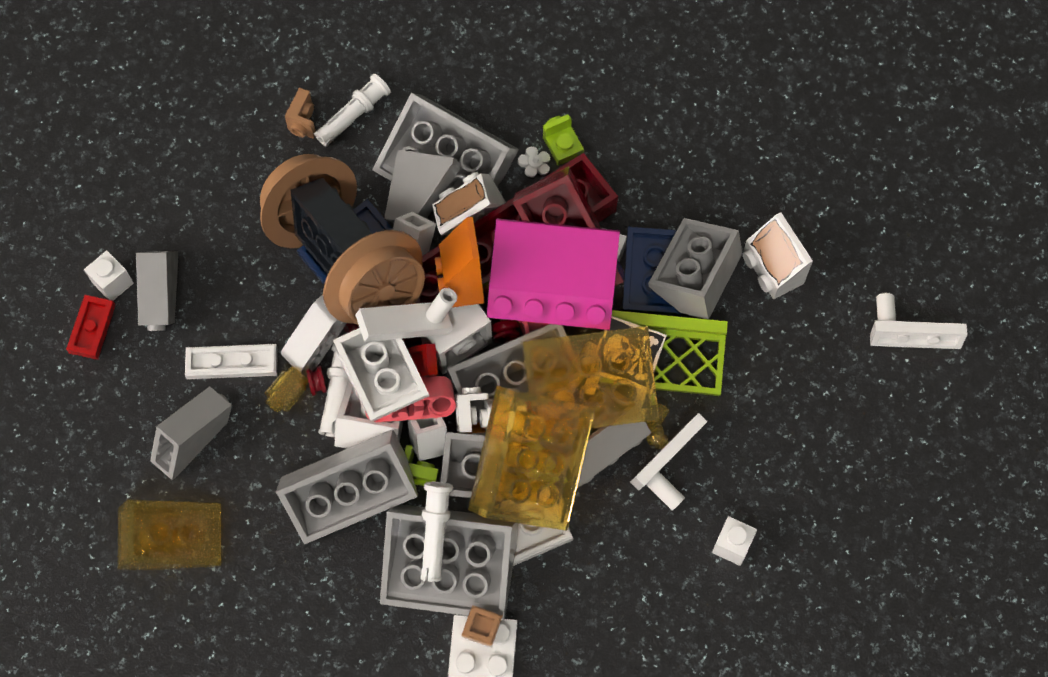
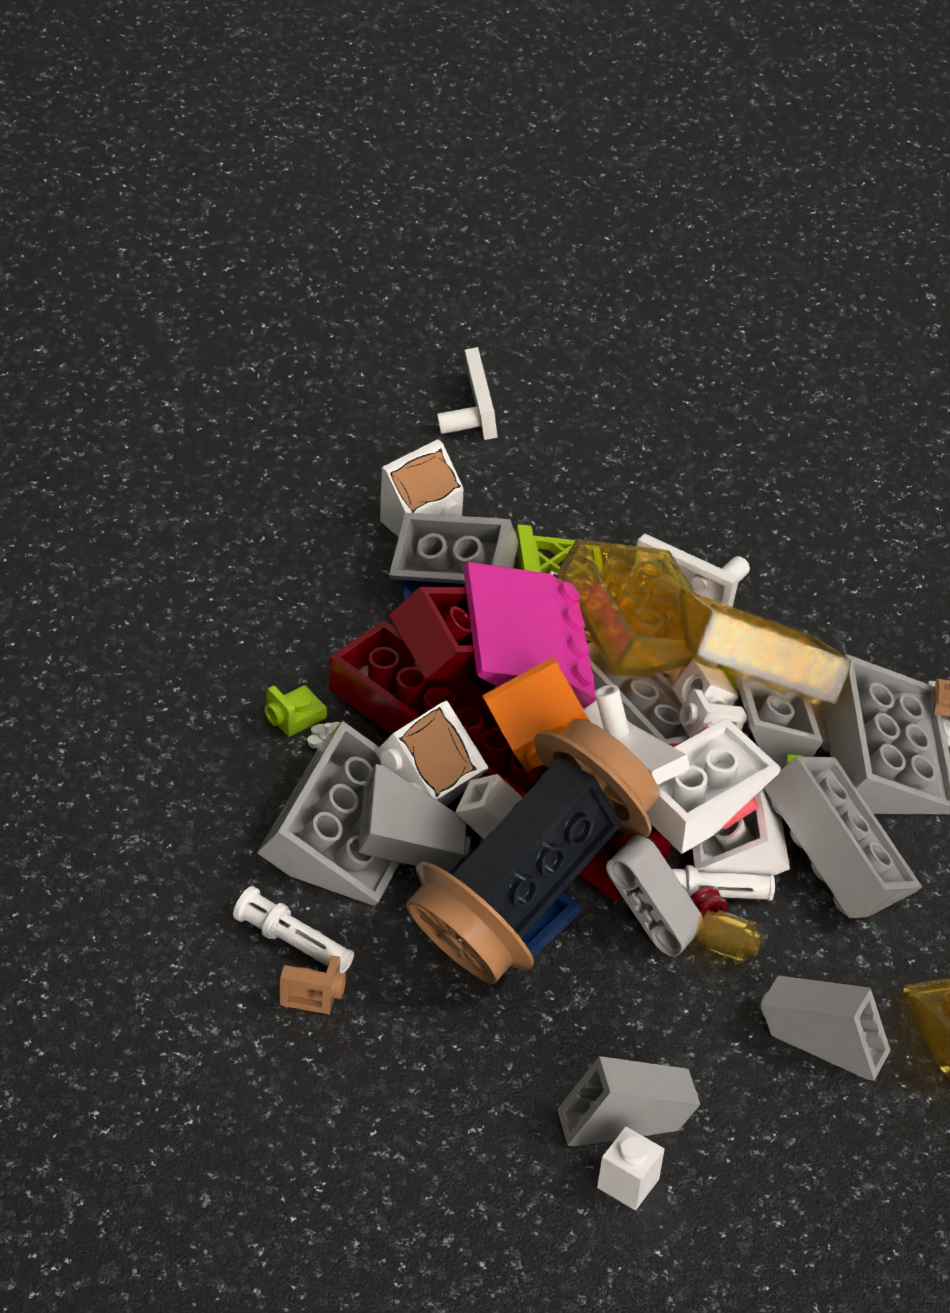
camera: 105 degrees left, 25 degrees down
(91, 327) = (711, 1181): red plate -> none
(231, 361) = (705, 1013): white tile -> none
(435, 515) = (861, 719): white pin -> none
(734, 541) = (769, 512): white brick -> none

